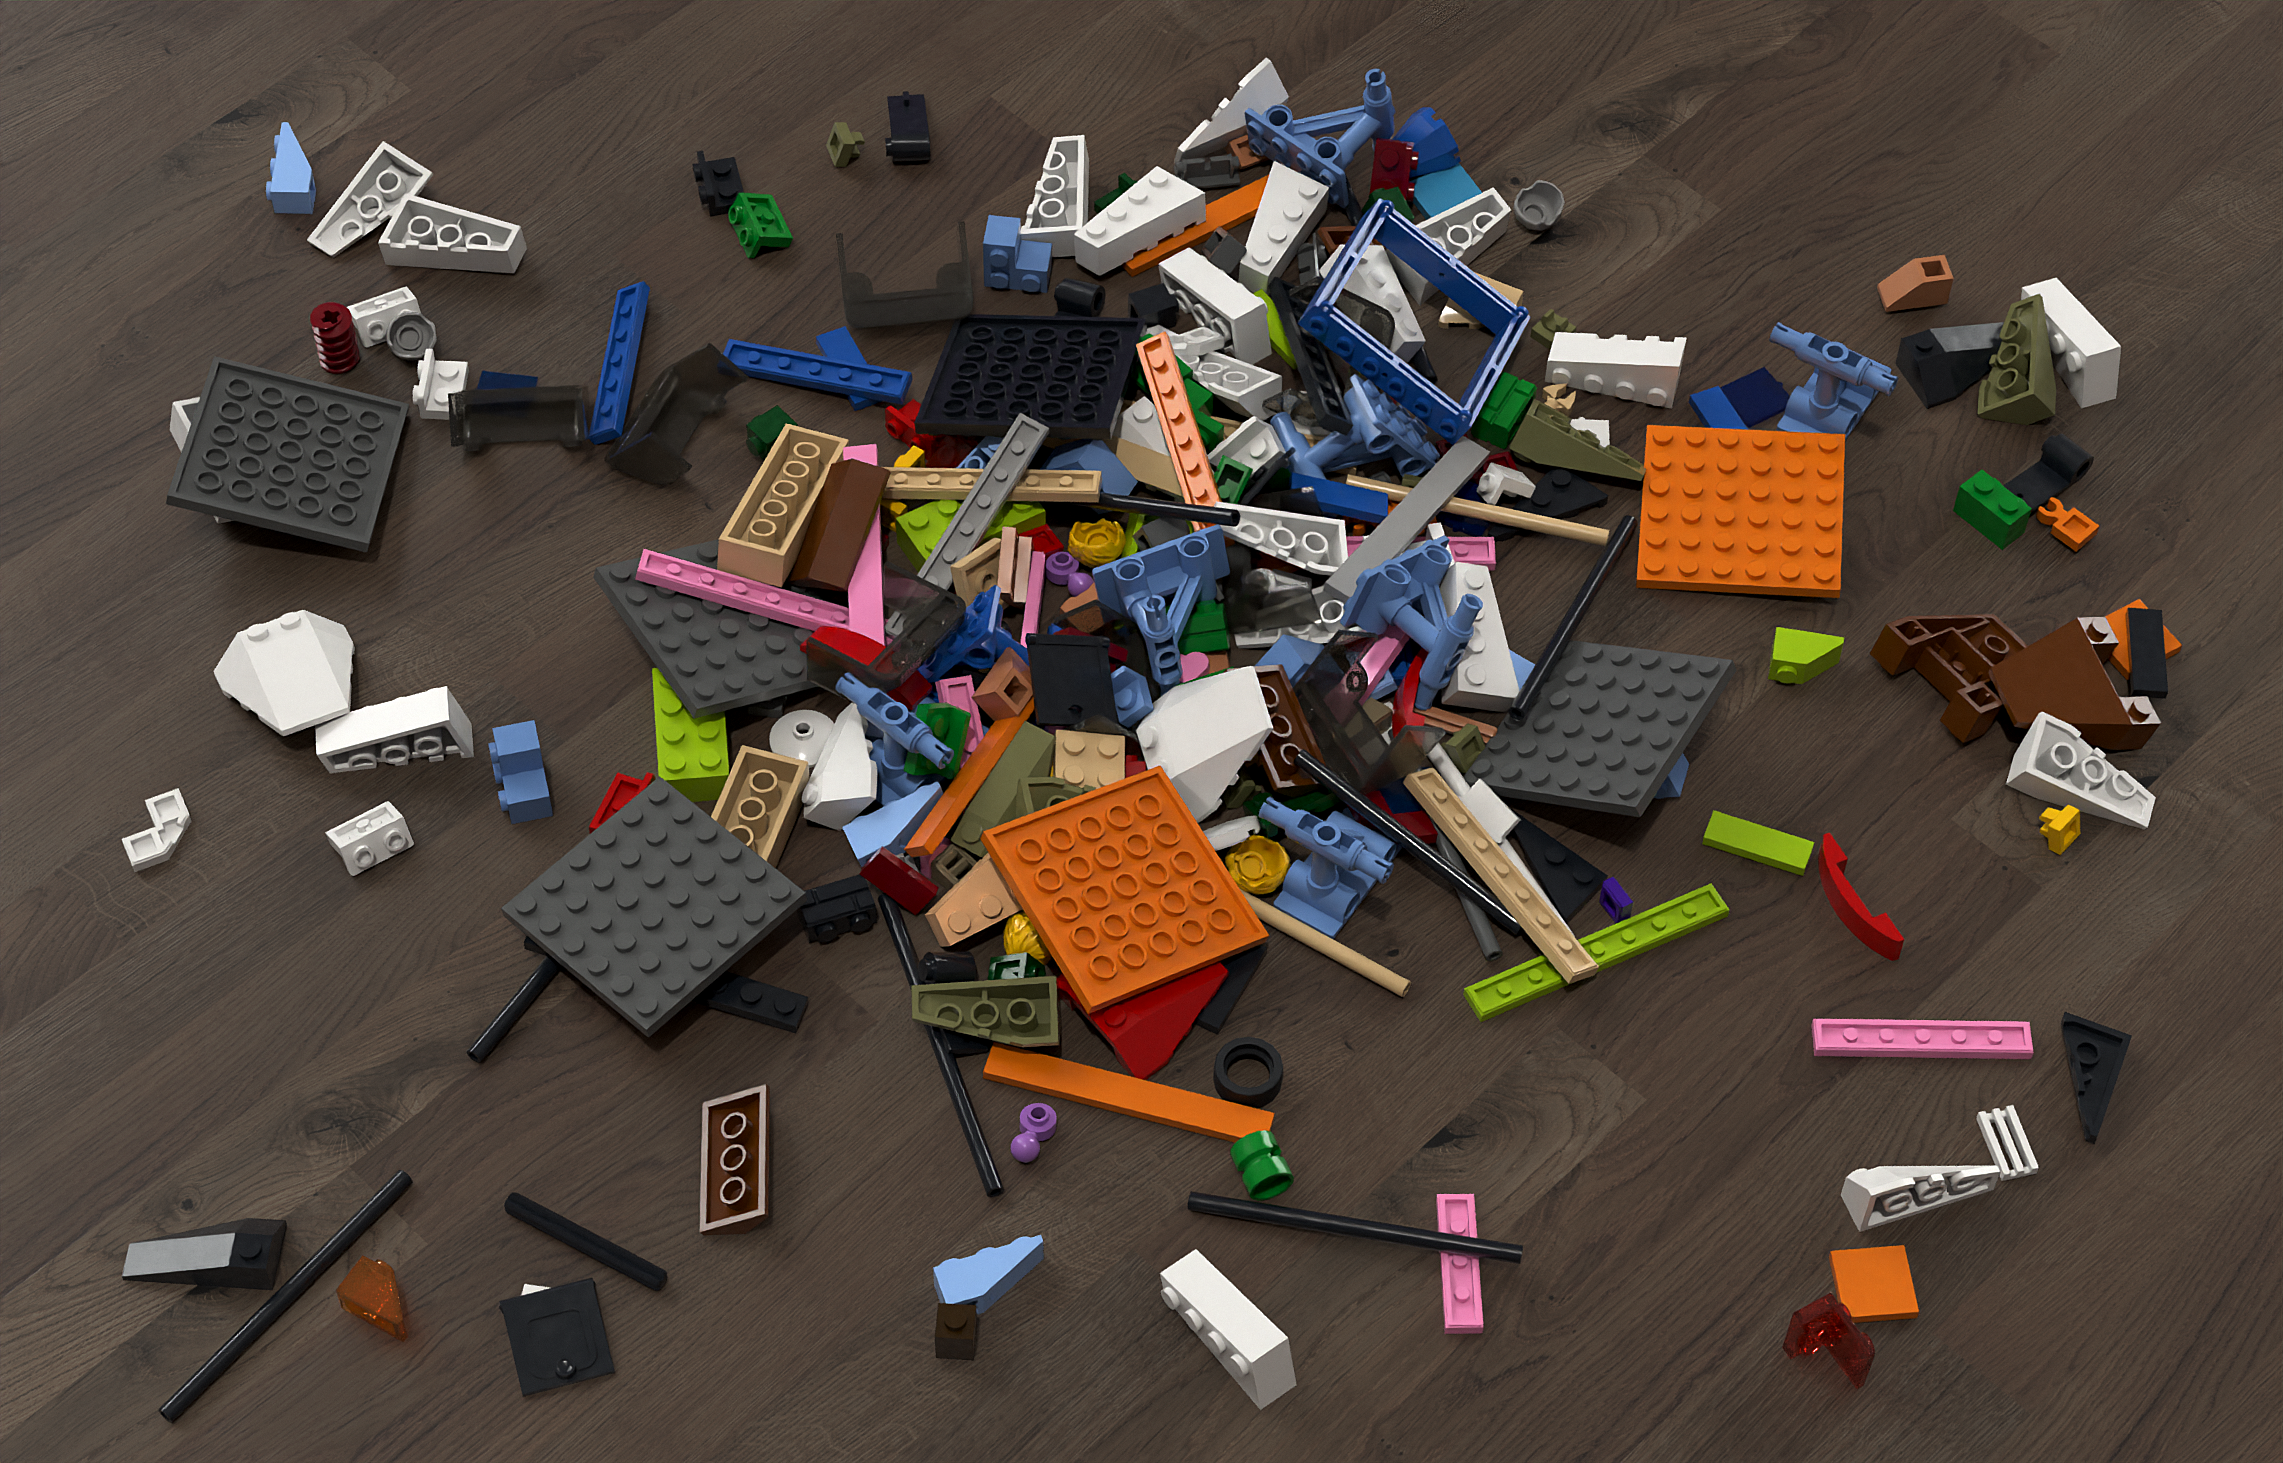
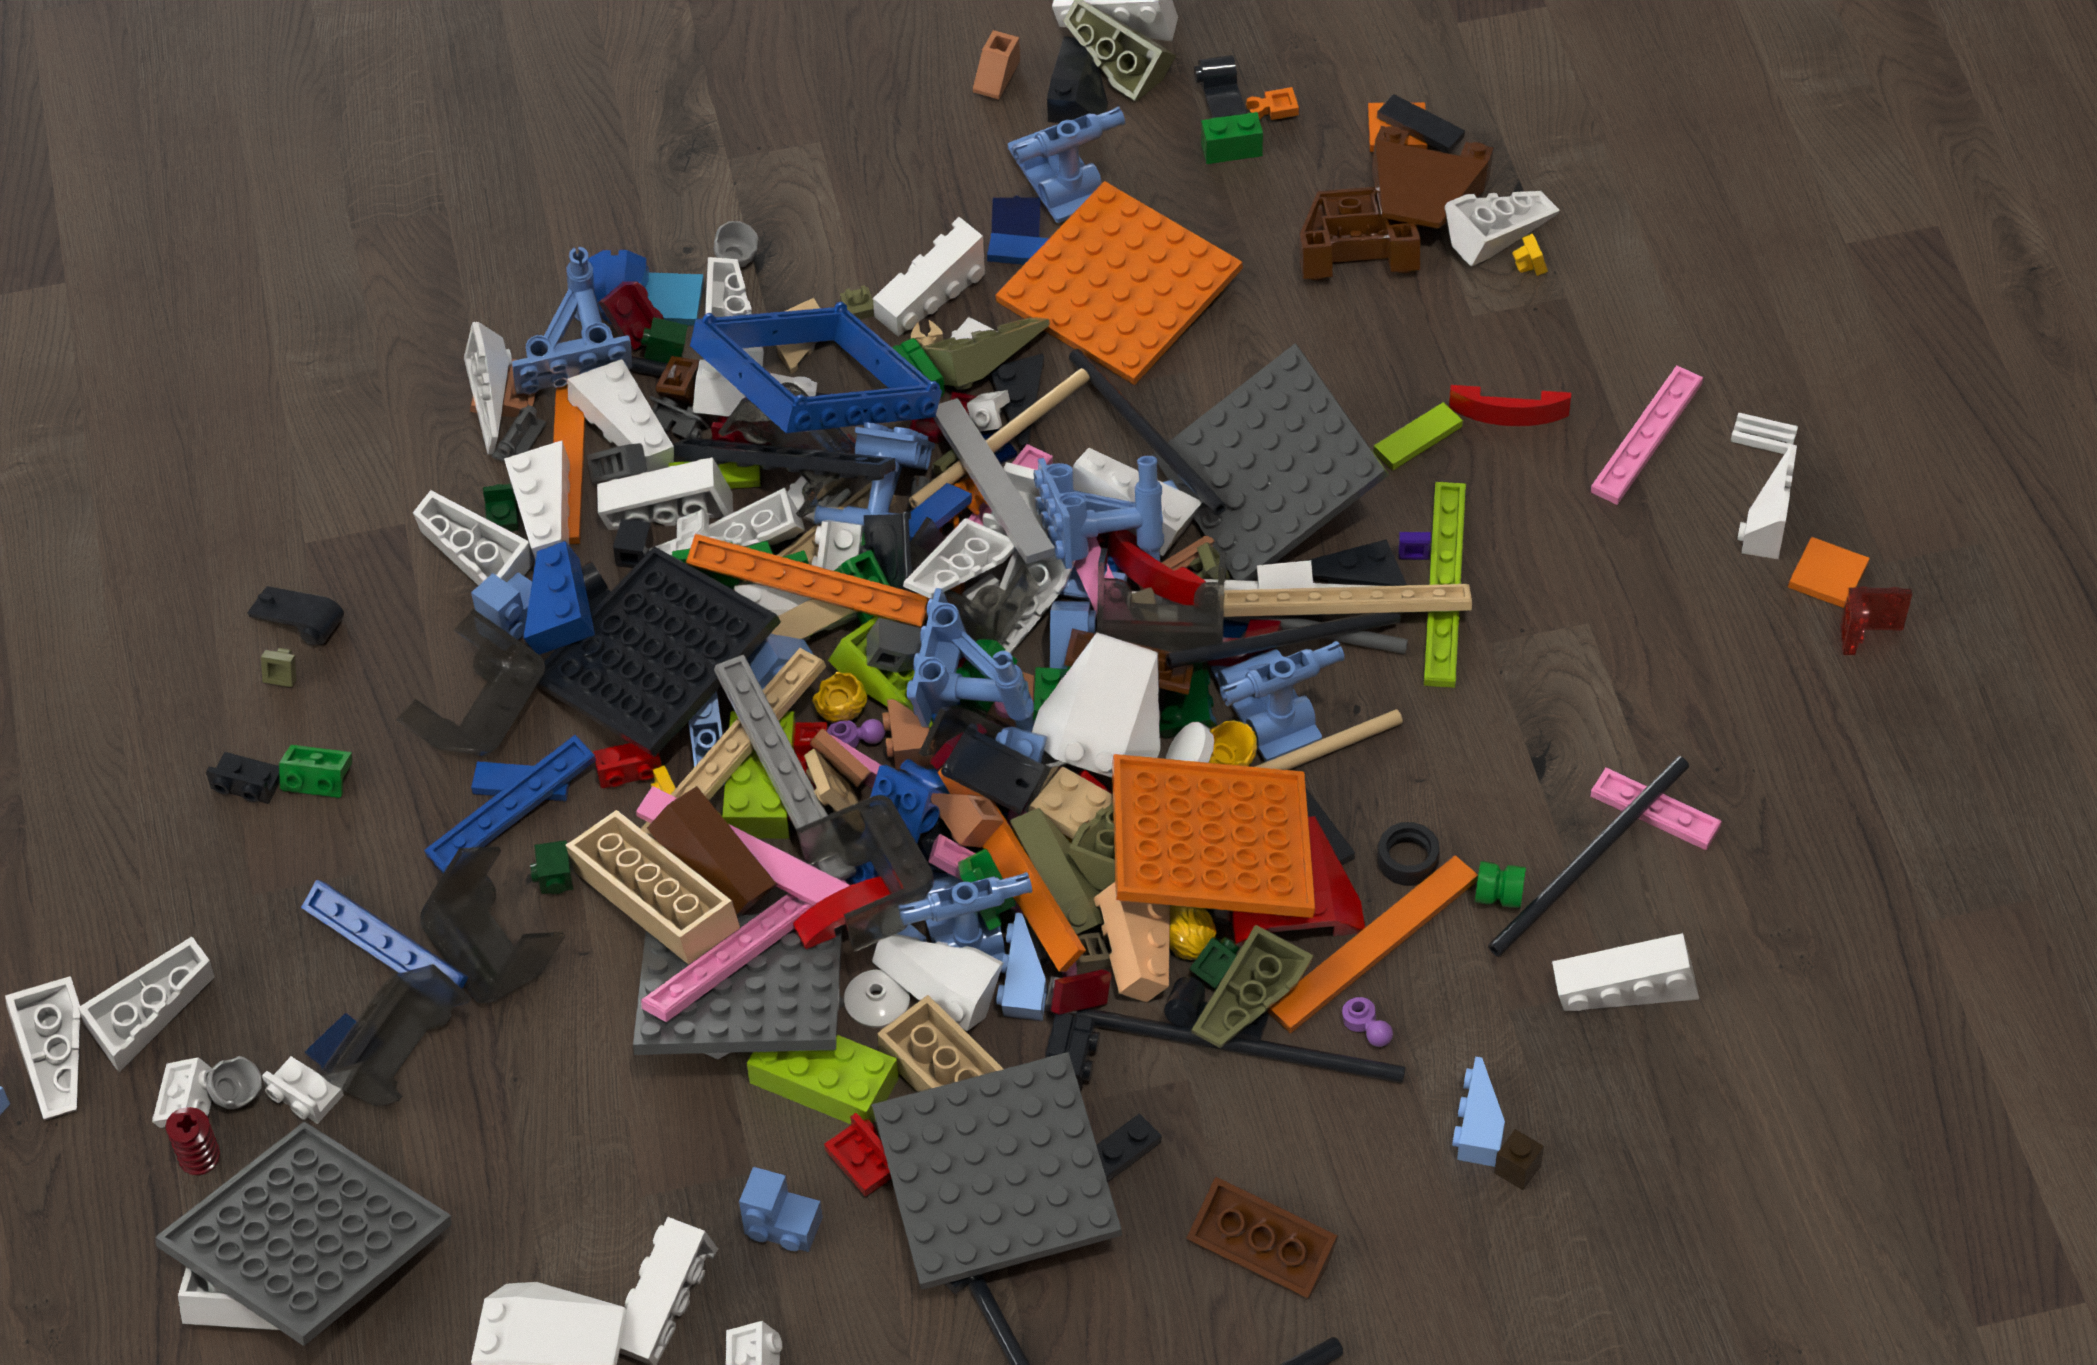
camera: 55 degrees left, 0 degrees up
(951, 451) = (678, 755): clear red bracket -> none
(1035, 281) = (557, 601): none -> blue wedge
(1163, 508) = (883, 617): black piece -> none
(1802, 655) = (1274, 320): lime slope -> none
(2095, 1062) = (1735, 347): black wing -> none

